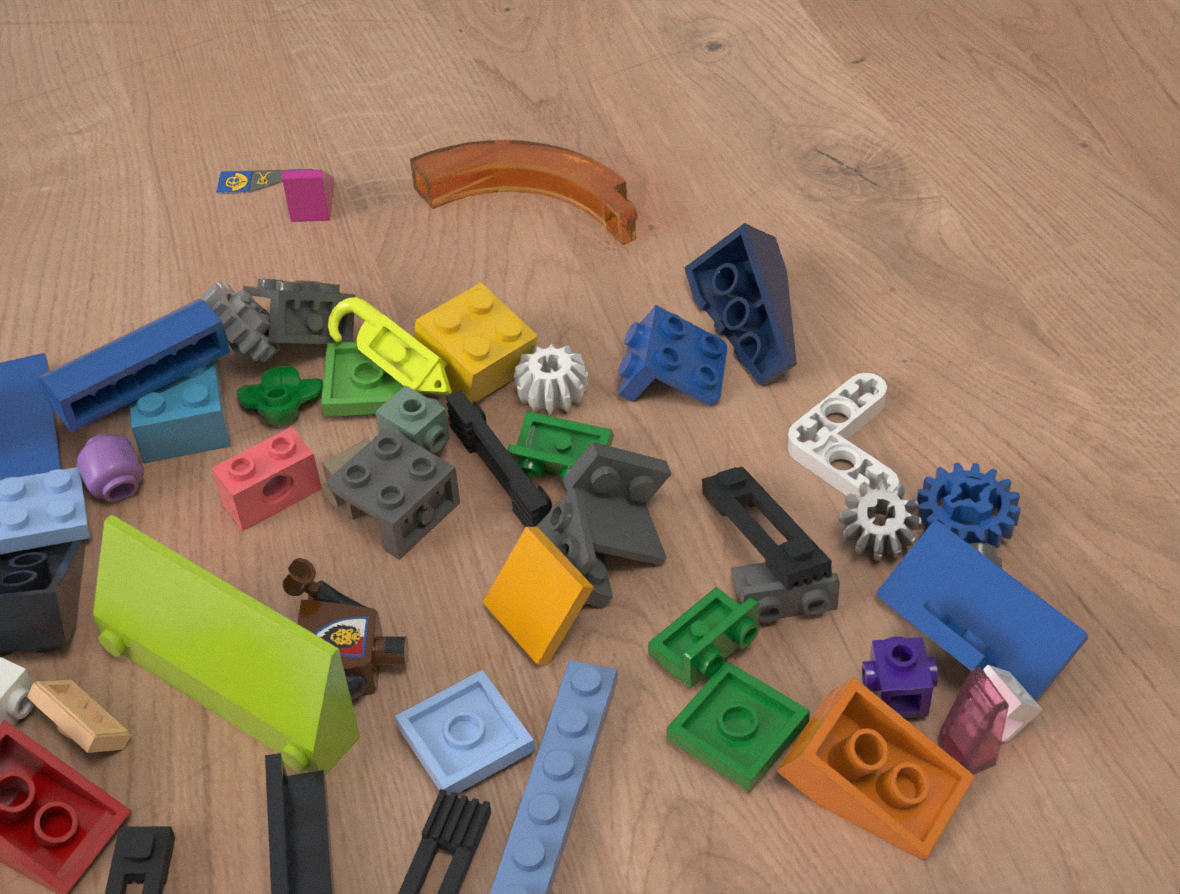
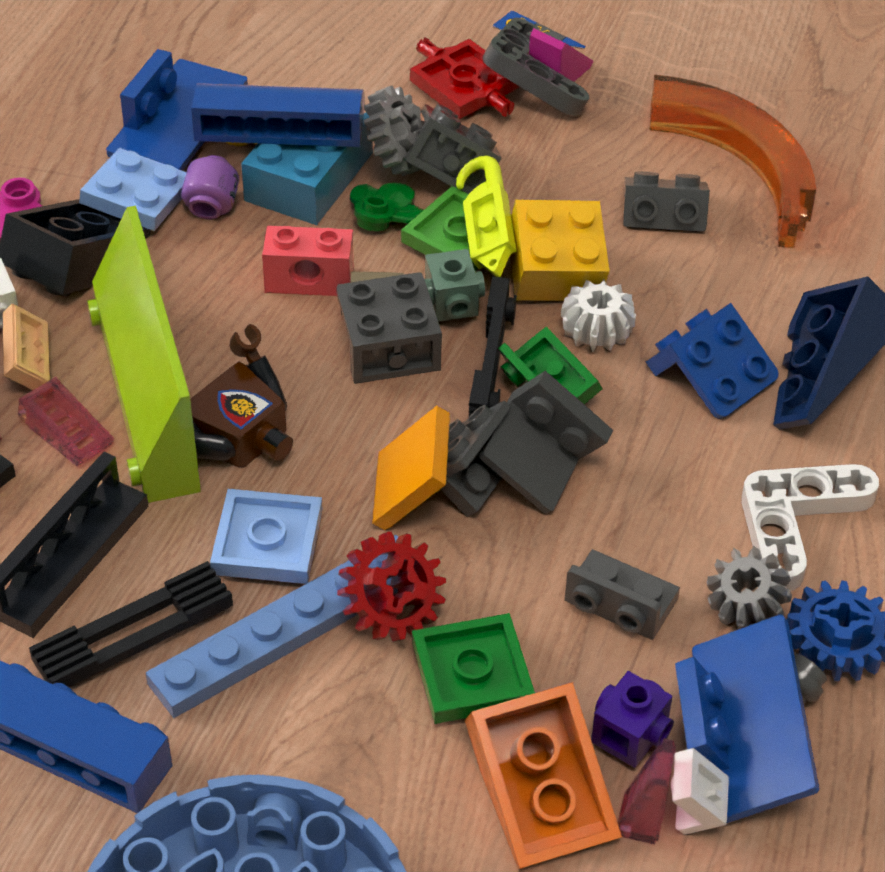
camera: 35 degrees right, 0 degrees up
(167, 741) = (55, 394): none -> clear pink slope
(242, 248) = (461, 79): none -> red plate
(271, 207) = (510, 58): none -> dark grey beam
(510, 258) = (666, 203): none -> dark grey bracket
(619, 703) = (408, 573): none -> red gear
(705, 636) = (516, 585): green bracket -> none
(790, 561) = (632, 567): black container -> none

